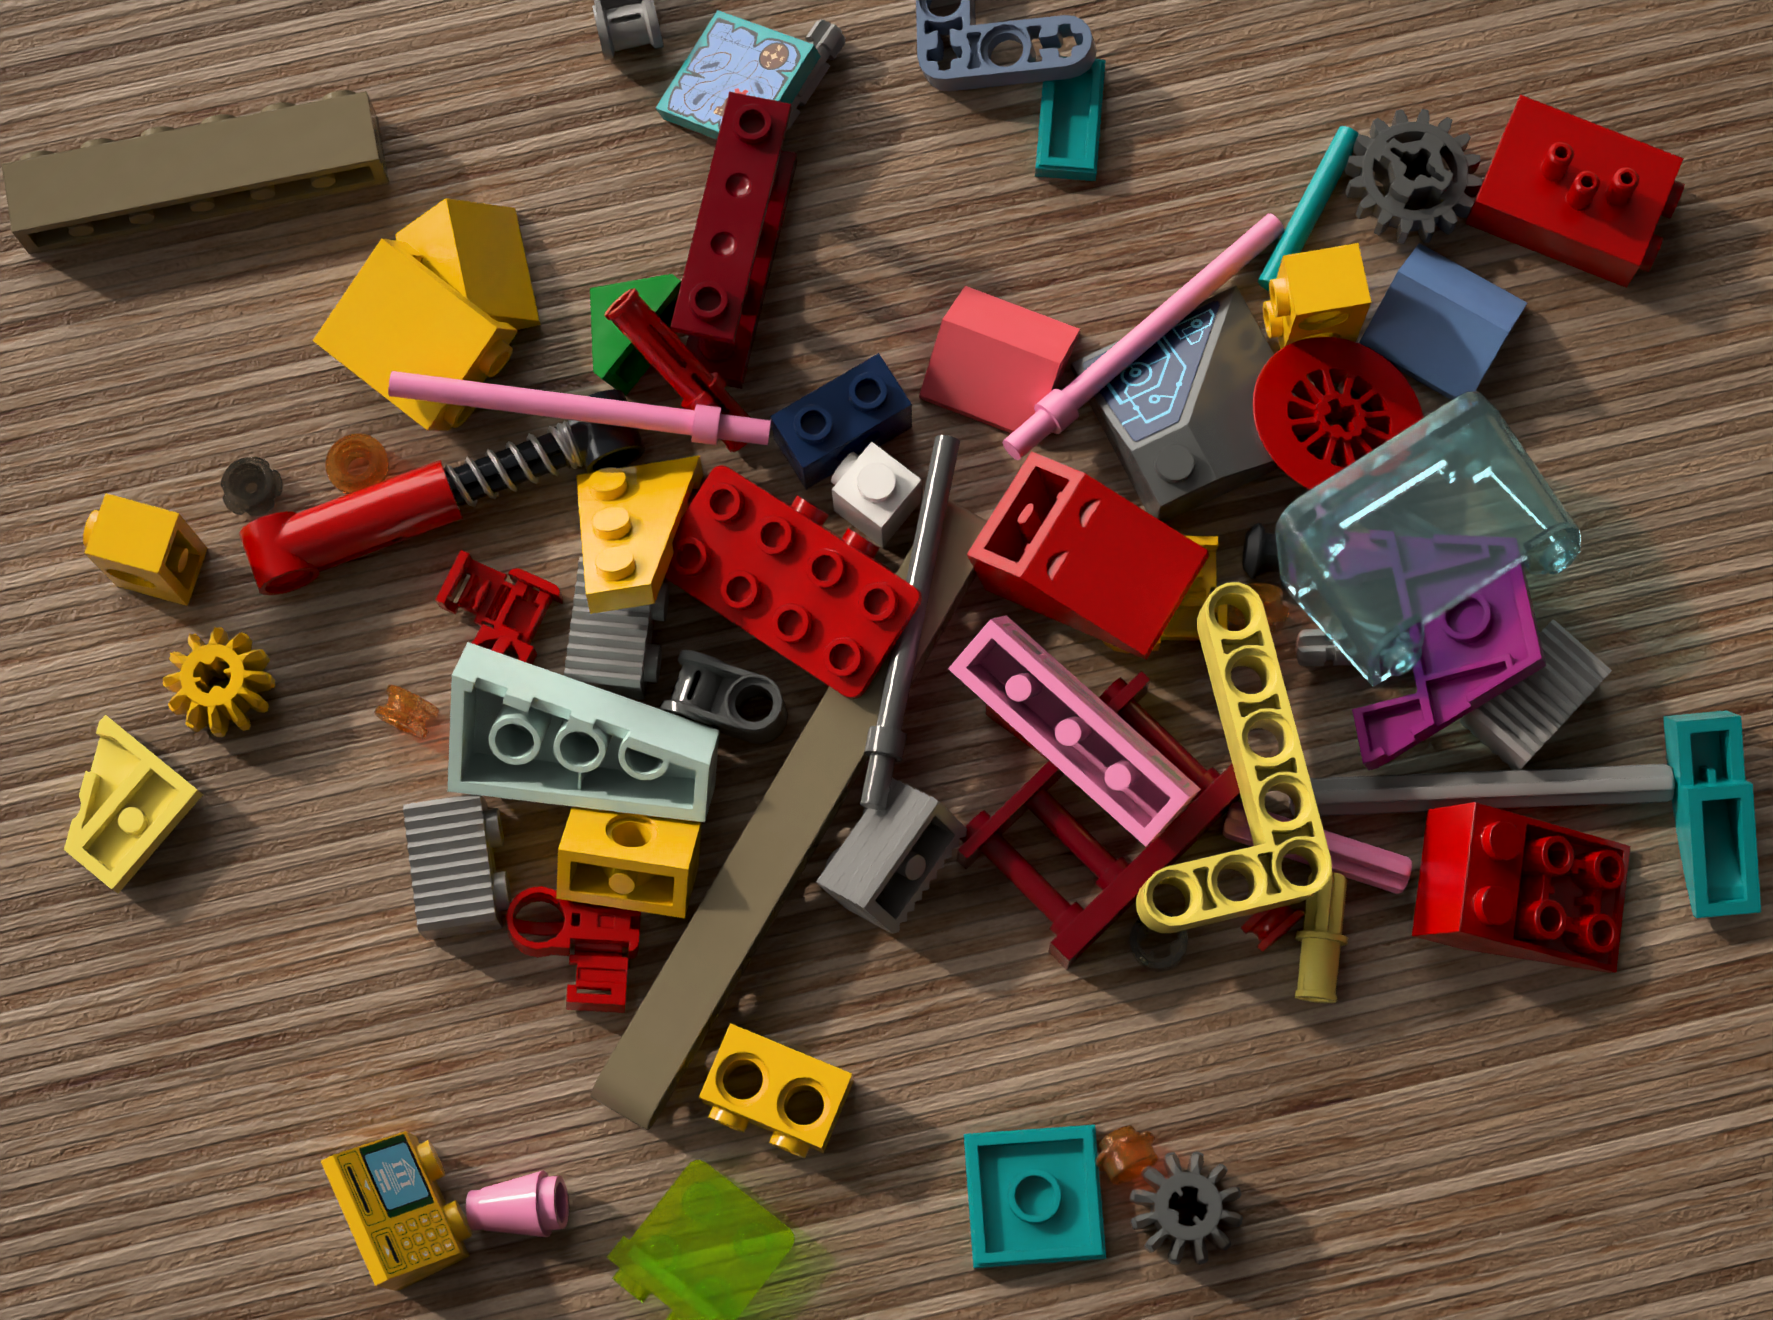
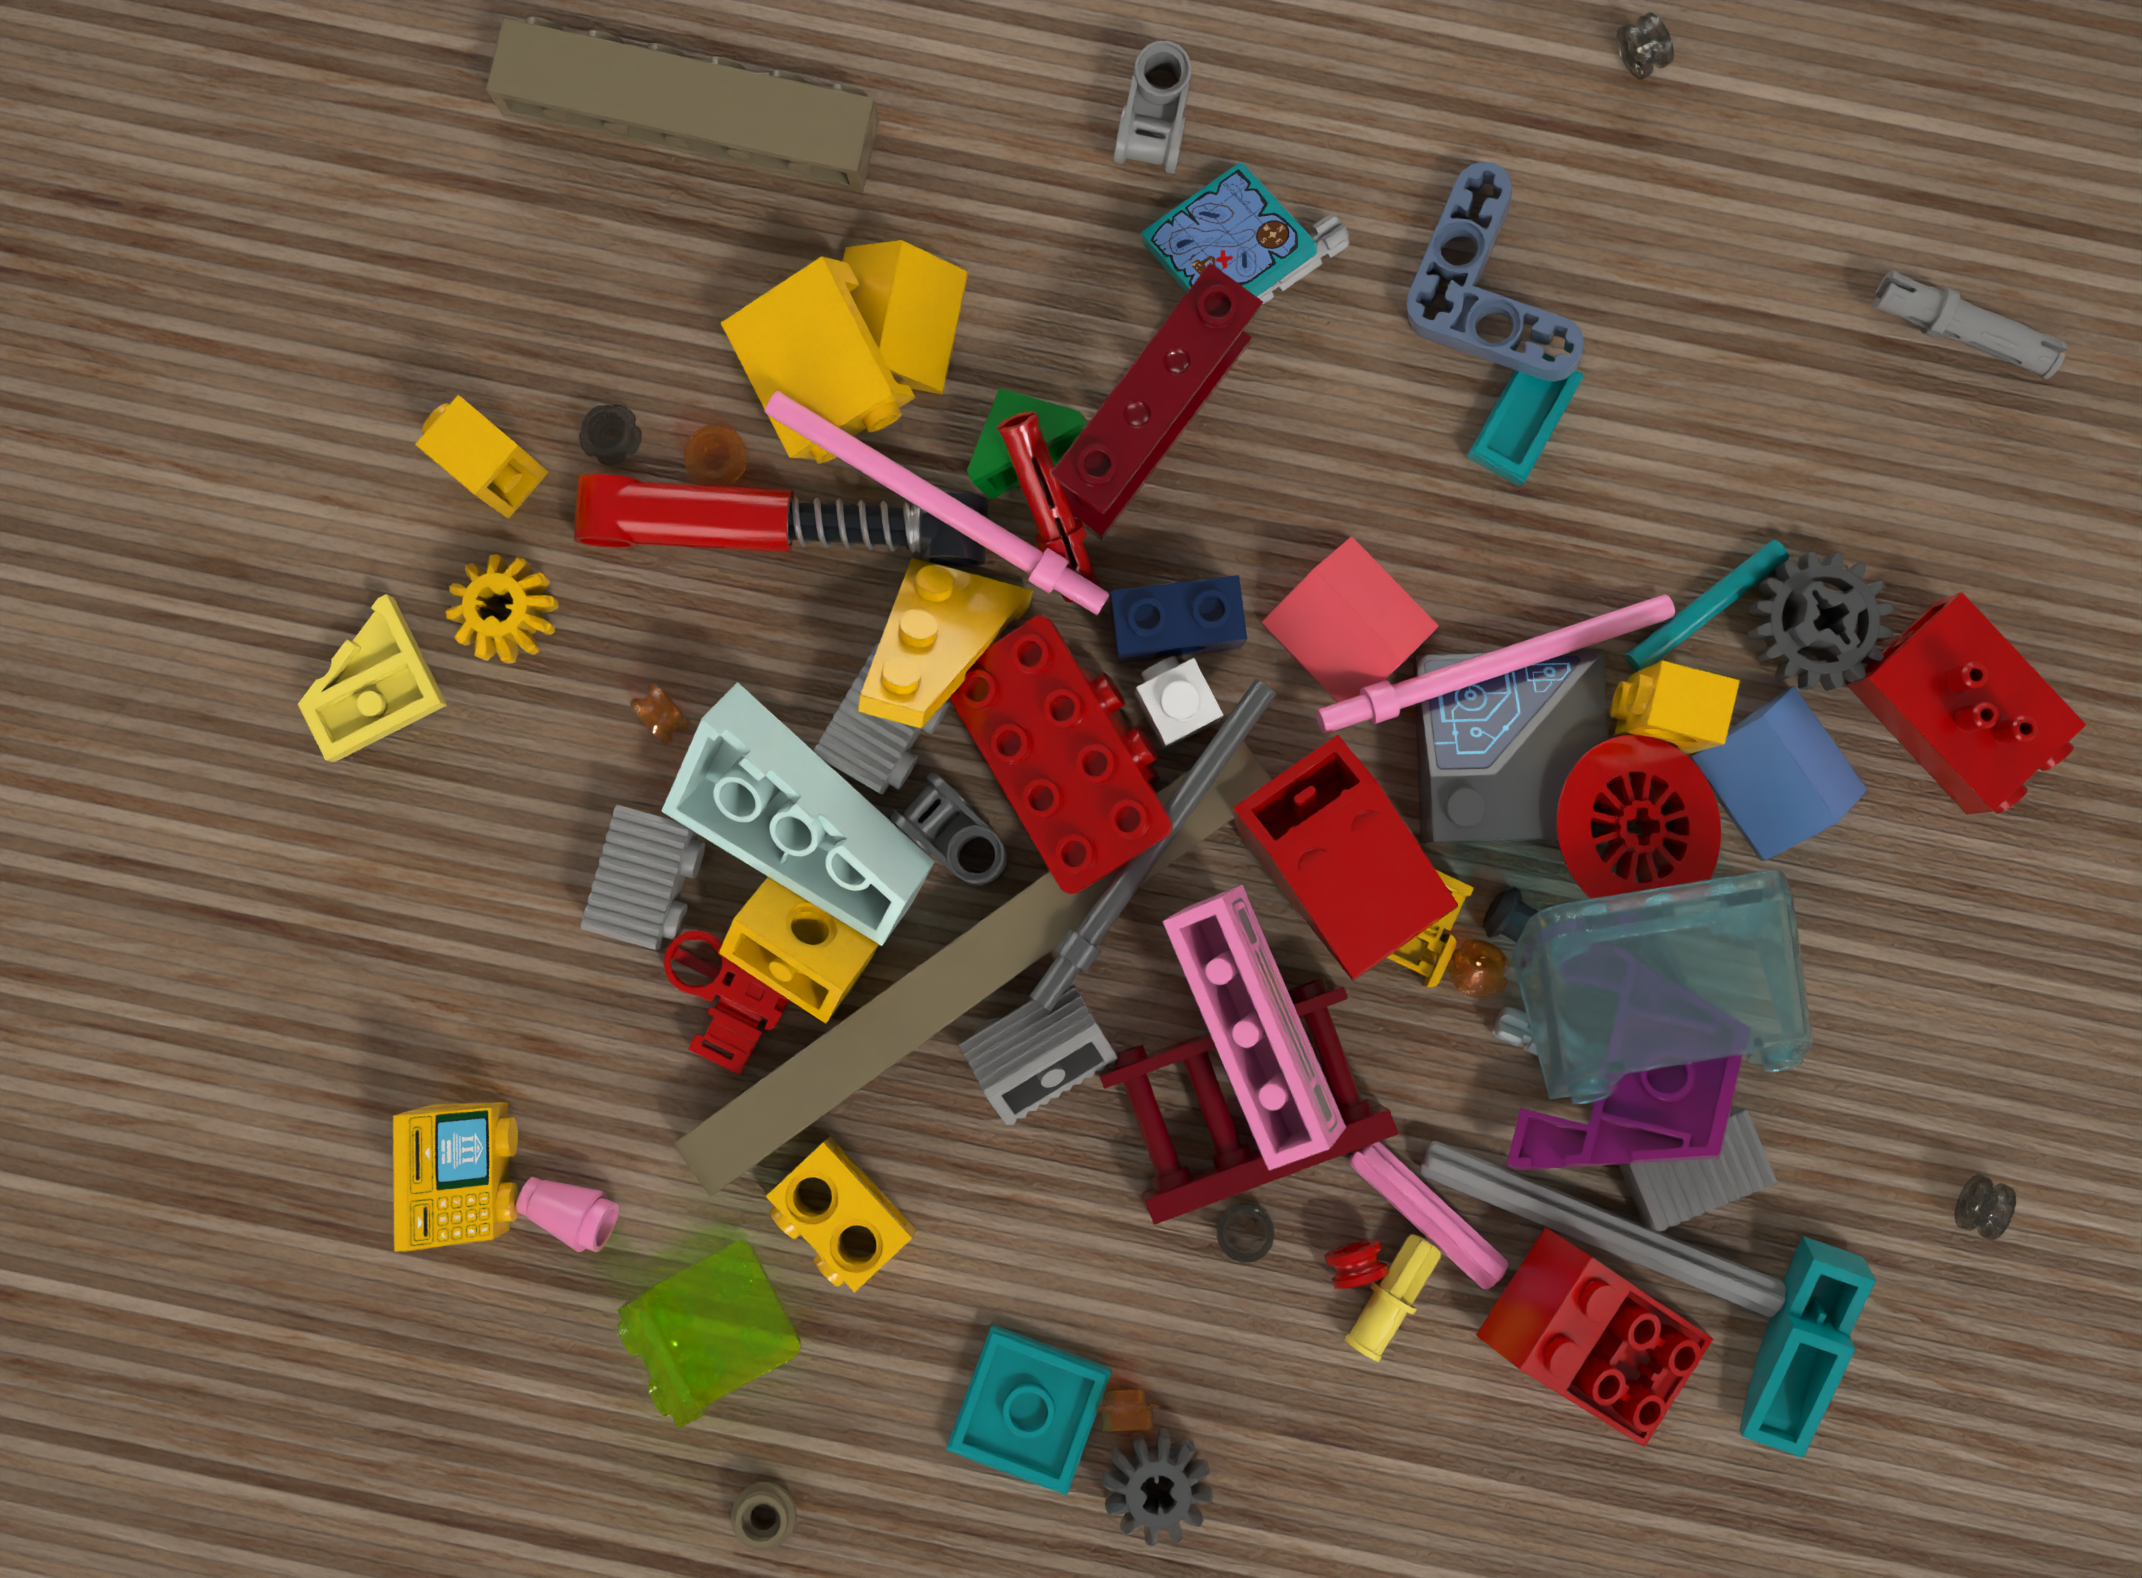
camera: 20 degrees right, 10 degrees up
(510, 608) = (789, 649): red piece -> none
(1255, 778) = (1400, 1145): light yellow beam -> none

